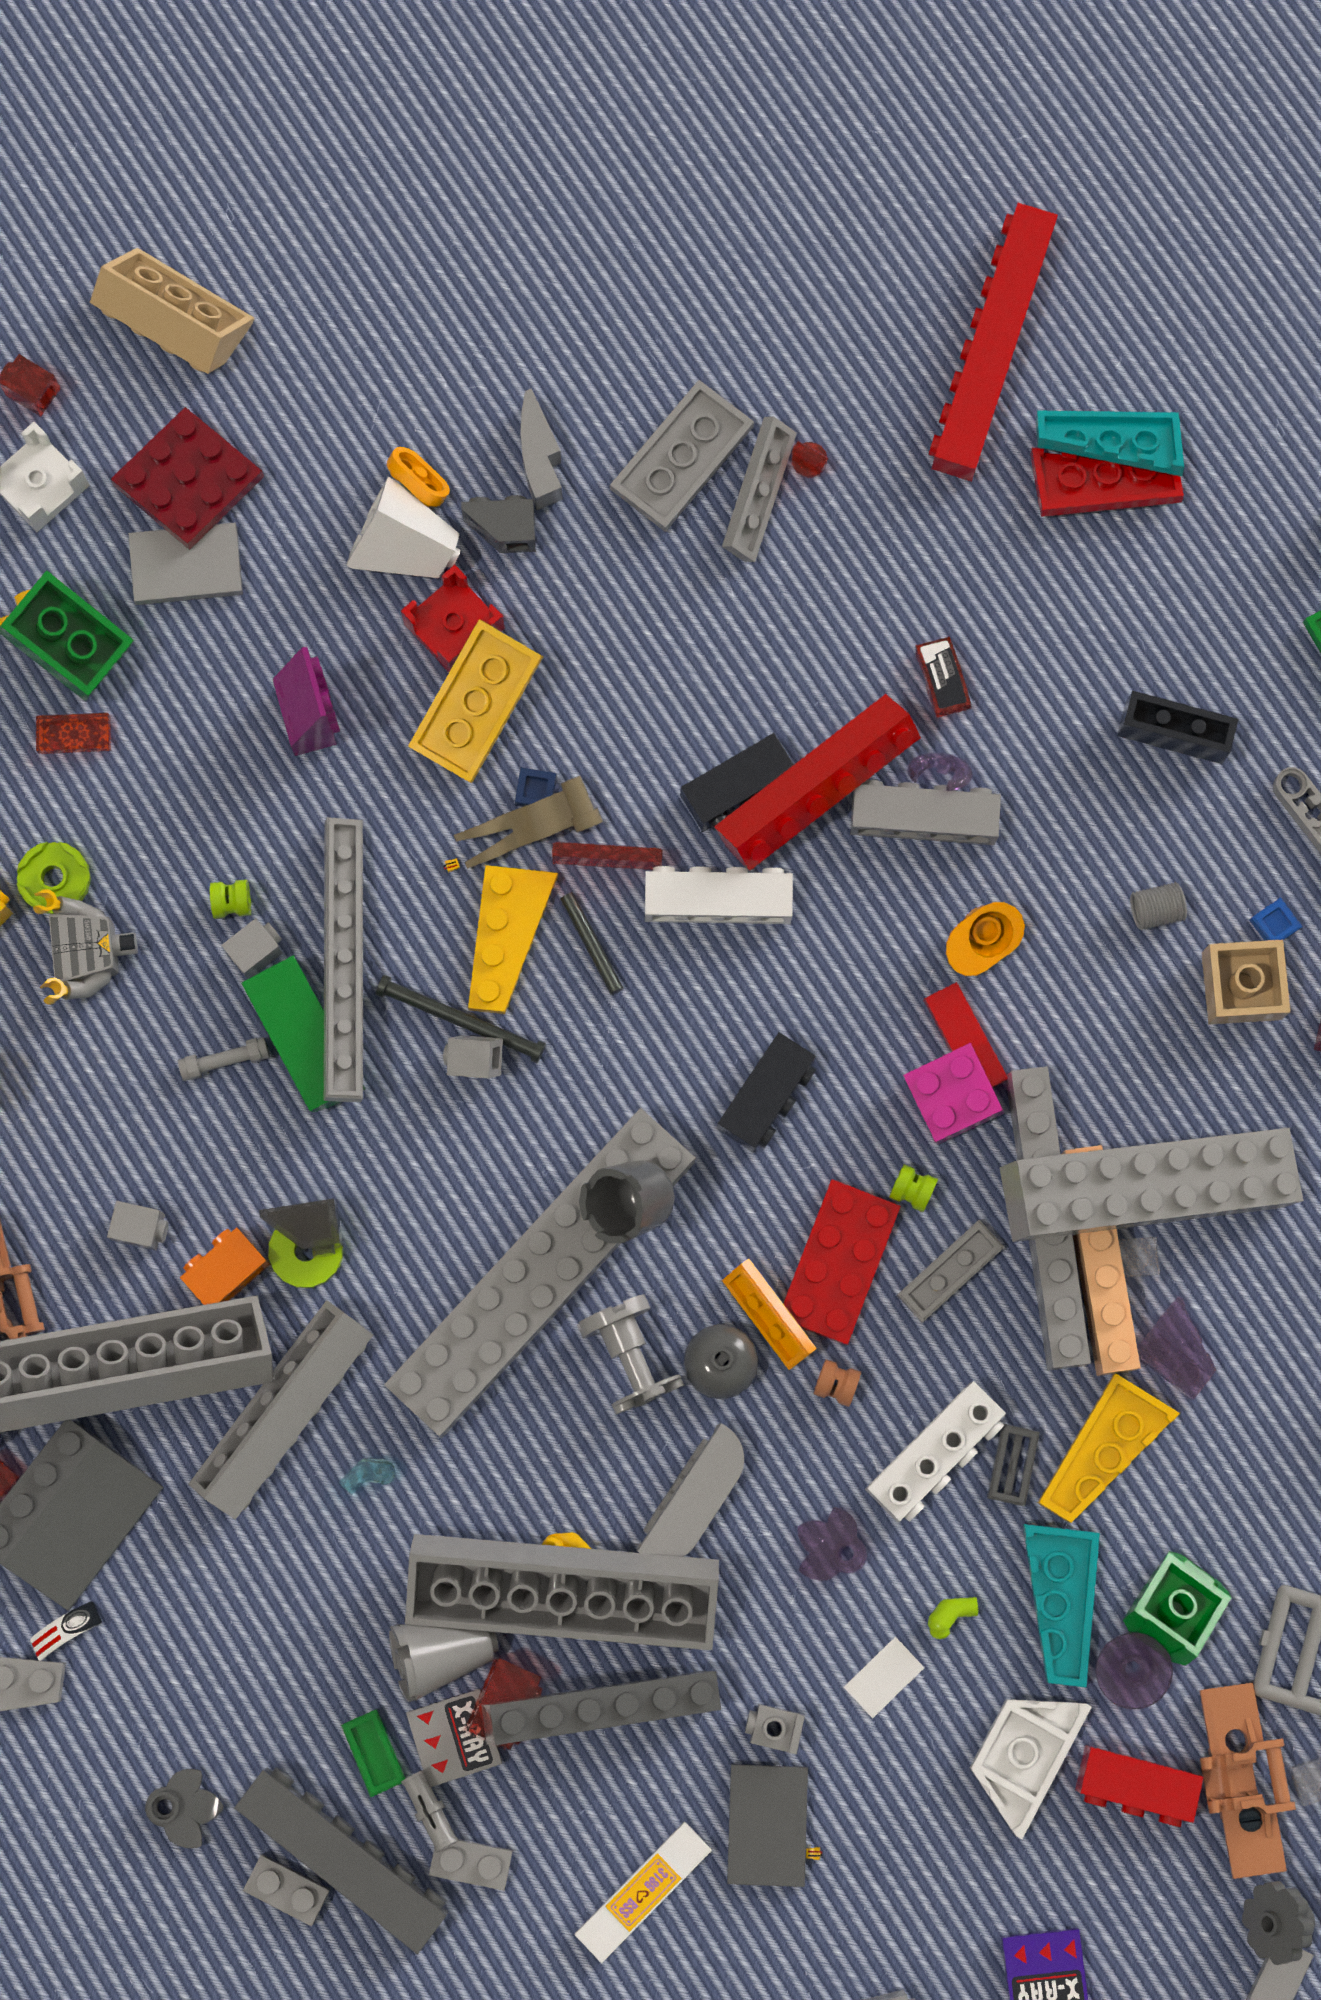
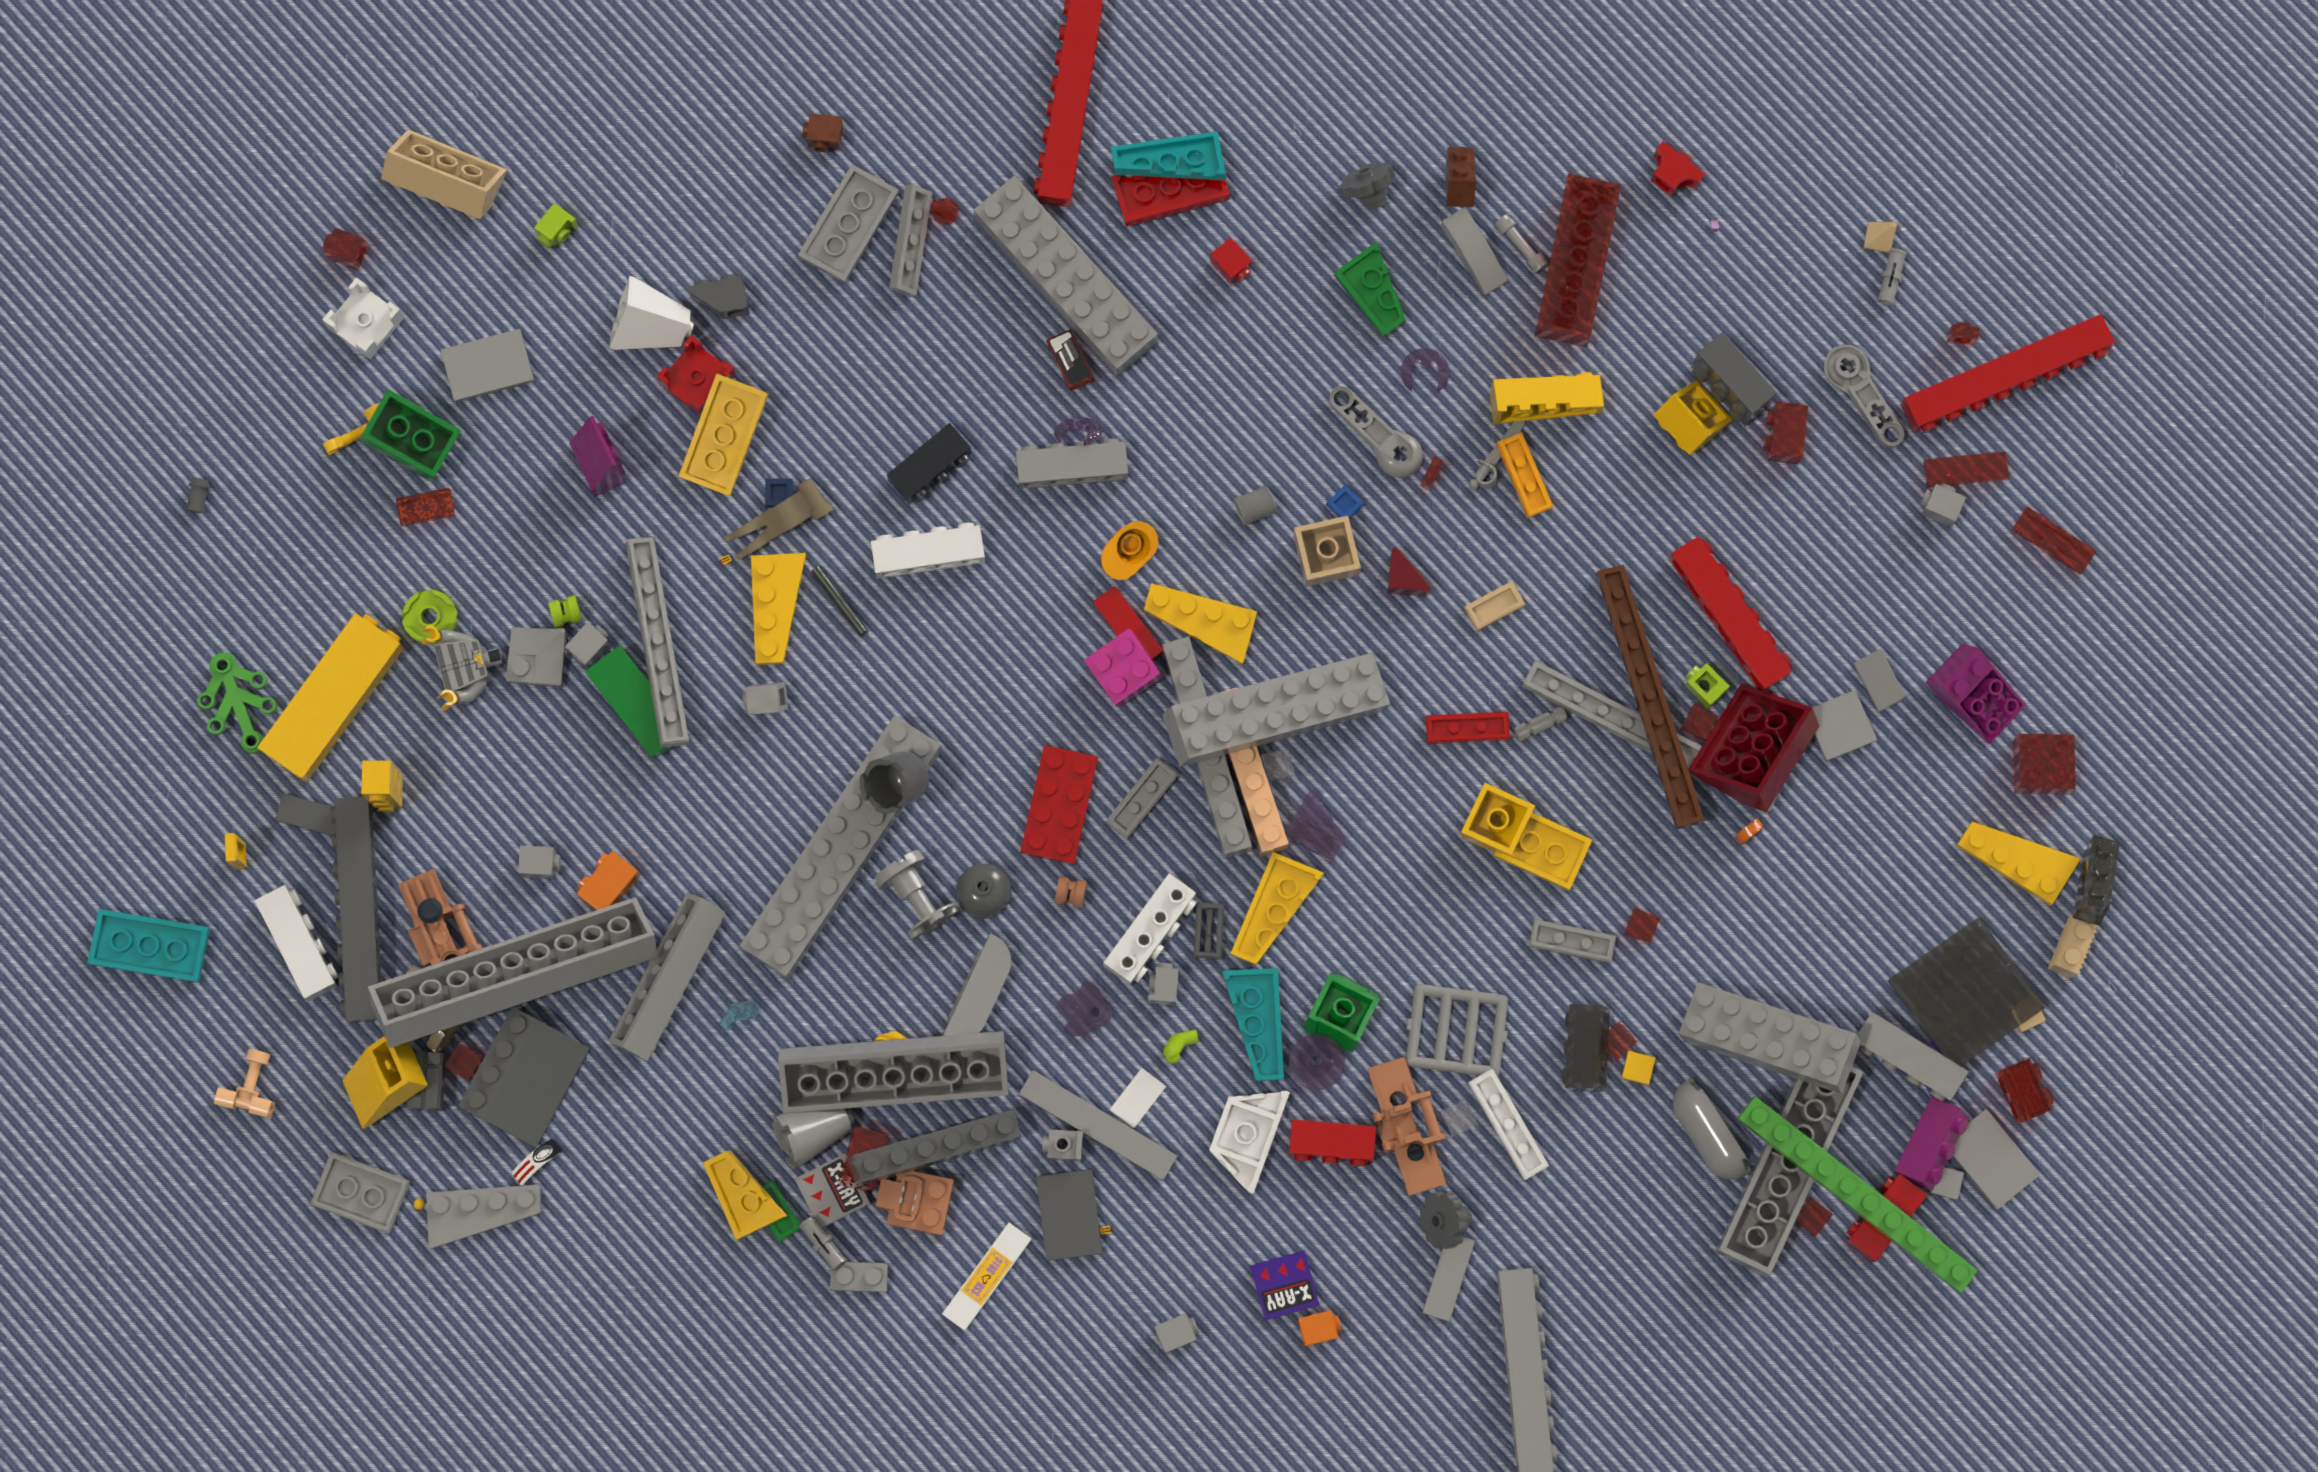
camera: 10 degrees left, 0 degrees up
(183, 952) = (536, 656): none -> light grey plate
(187, 478) = (477, 300): dark red plate -> none
(189, 1808) = (648, 1272): dark grey plate -> none
(192, 1067) = (557, 740): light grey bar -> none
(286, 1889) = (729, 1317): light grey plate -> none
(297, 1272) = (665, 844): lime tile -> none
(302, 399) = (554, 226): none -> lime brick
(308, 1225) = (663, 840): clear smoke slope -> none
(330, 1726) = (741, 1196): none -> yellow wing
(342, 1859) = (764, 1288): dark grey brick -> none
(417, 477) = (651, 272): light orange plate -> none
(459, 1018) = (750, 672): pearl dark grey bar -> none
(539, 454) = (740, 240): light grey slope -> none
(565, 1774) = (916, 1201): none -> nougat piece
(606, 856) = (840, 534): clear red tile -> none
(668, 333) = (823, 132): none -> copper brick
(767, 1093) = (987, 690): black brick -> none
(769, 1314) = (1013, 850): light orange tile -> none
(818, 782) = (987, 454): red brick -> none
(826, 1707) = (1098, 1125): none -> light grey tile
(913, 1188) = (1105, 742): lime wheel -> none
(943, 1530) = (1163, 984): none -> light grey brick
(954, 567) = (1065, 276): none -> light grey brick
(1076, 1050) = (1213, 622): none -> yellow wing
(1172, 583) = (1231, 262): none -> red brick
(1177, 727) = (1249, 370): black brick -> none

